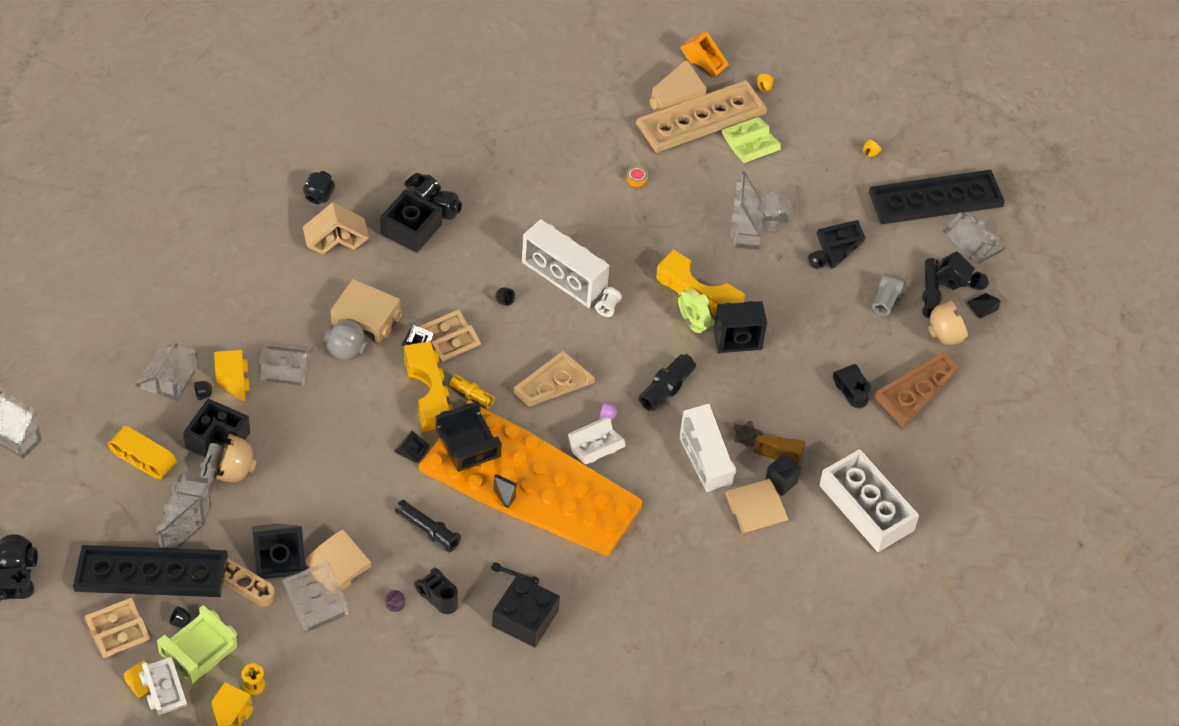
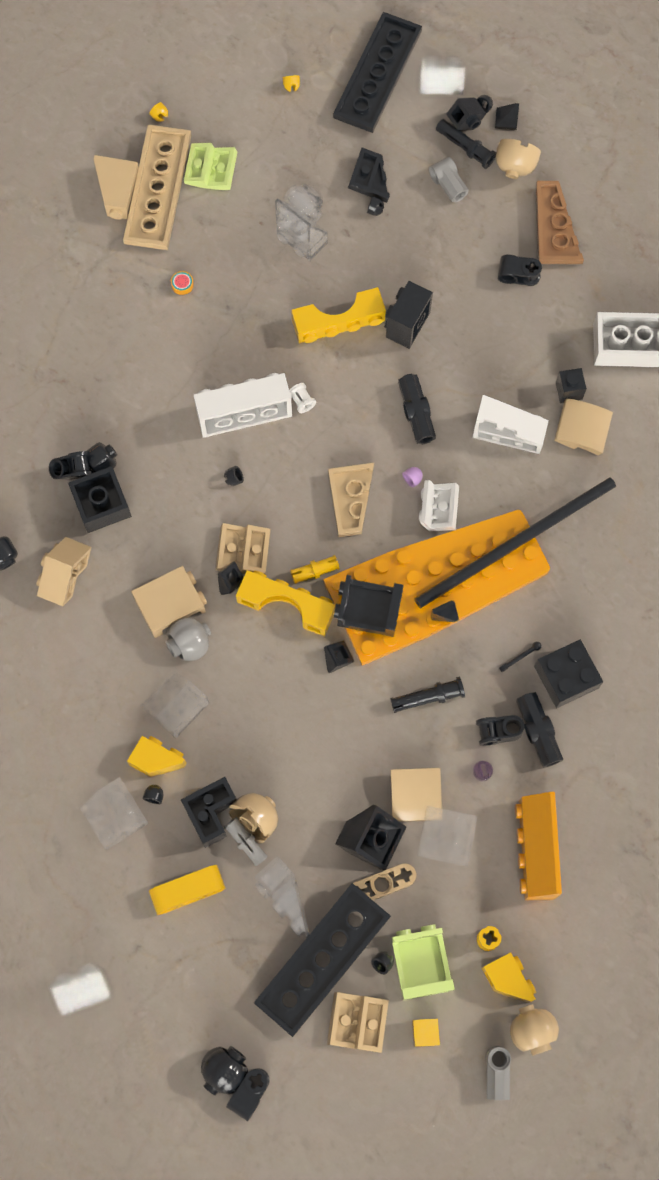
camera: 50 degrees left, 20 degrees up
(163, 685) = (449, 1019): white bracket -> none
(358, 671) = (539, 847): none -> light orange slope
(461, 619) = (539, 729): none -> black piece
(610, 509) = (514, 543): none -> black piece
(696, 309) = (367, 336): yellowish green plate -> none
(704, 52) = (90, 135): light orange arch -> none
(746, 439) = (506, 389): clear smoke plate -> none
(777, 446) = (547, 367): pearl gold slope -> none

